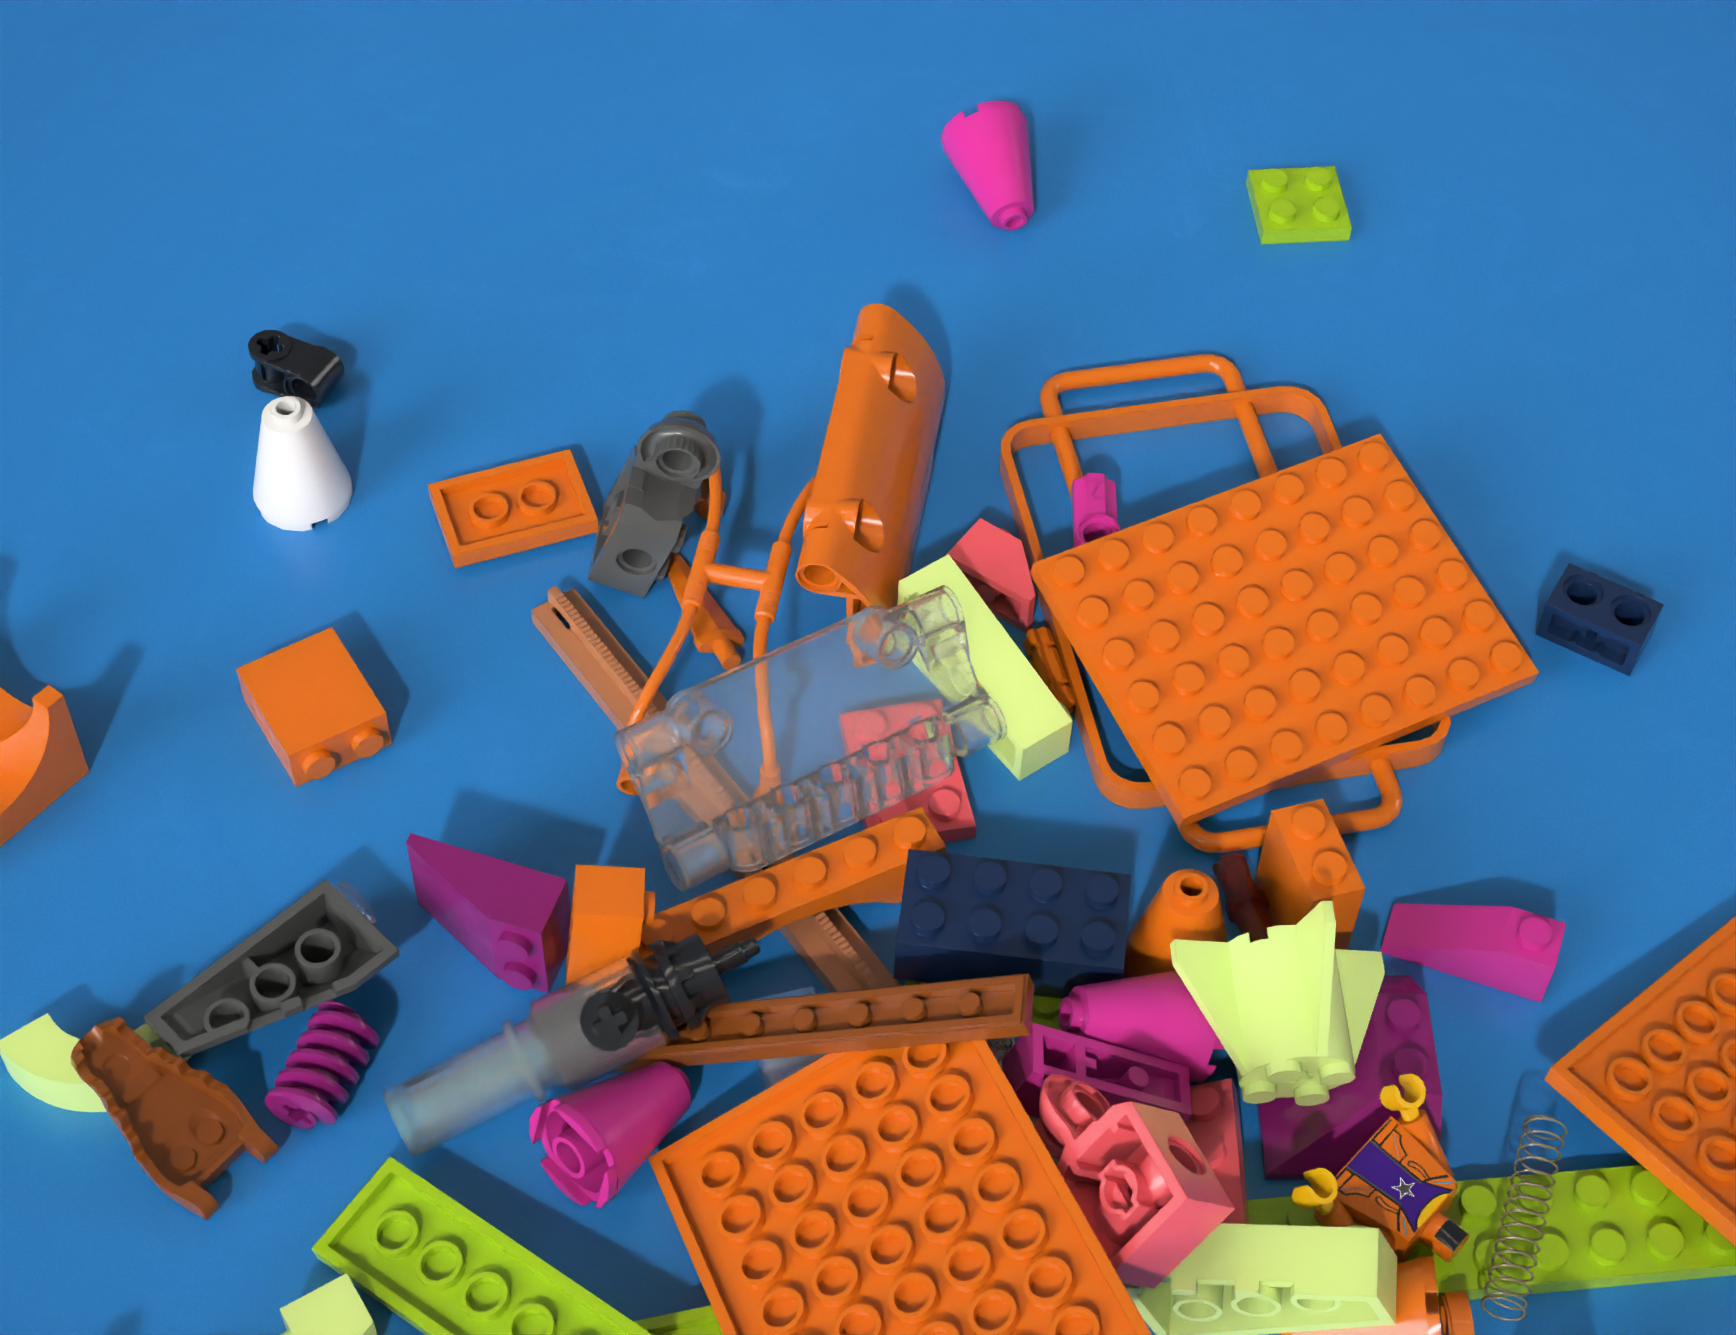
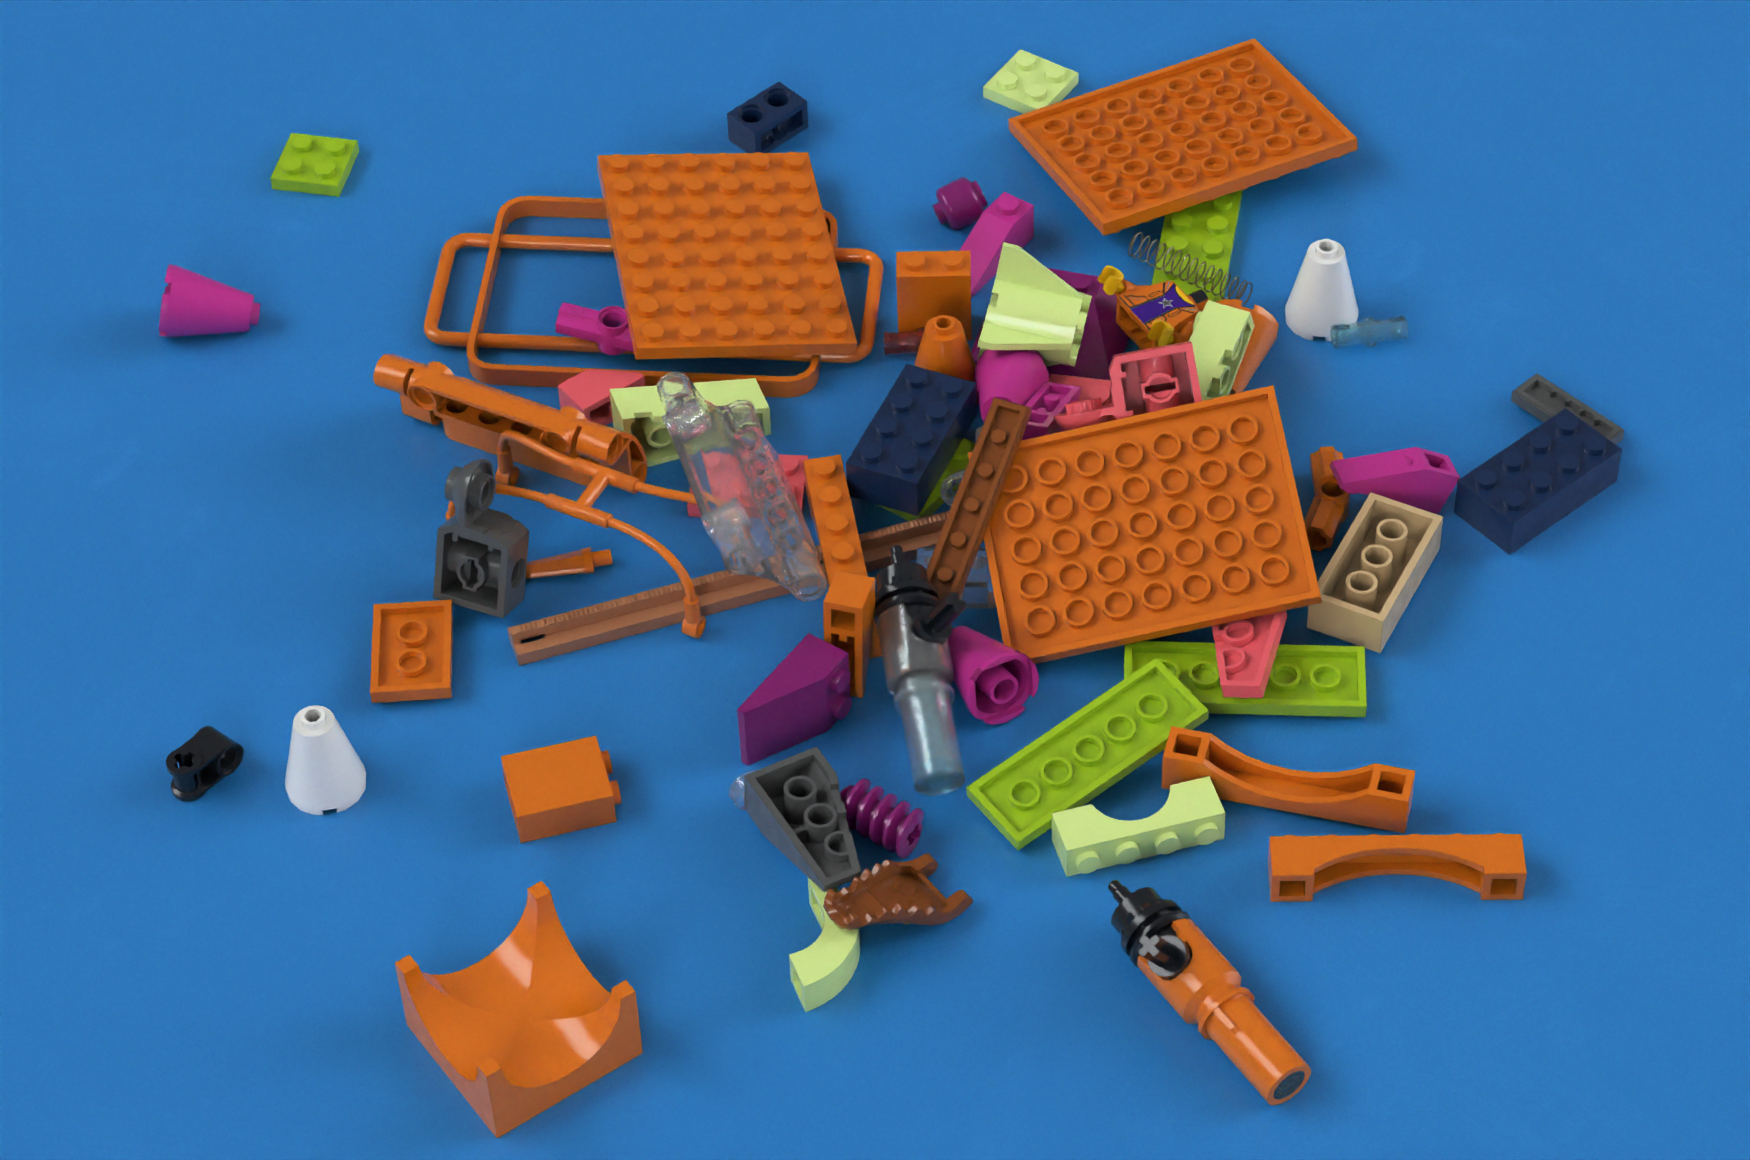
camera: 70 degrees left, 5 degrees down
(1544, 883) = (959, 203): none -> magenta head

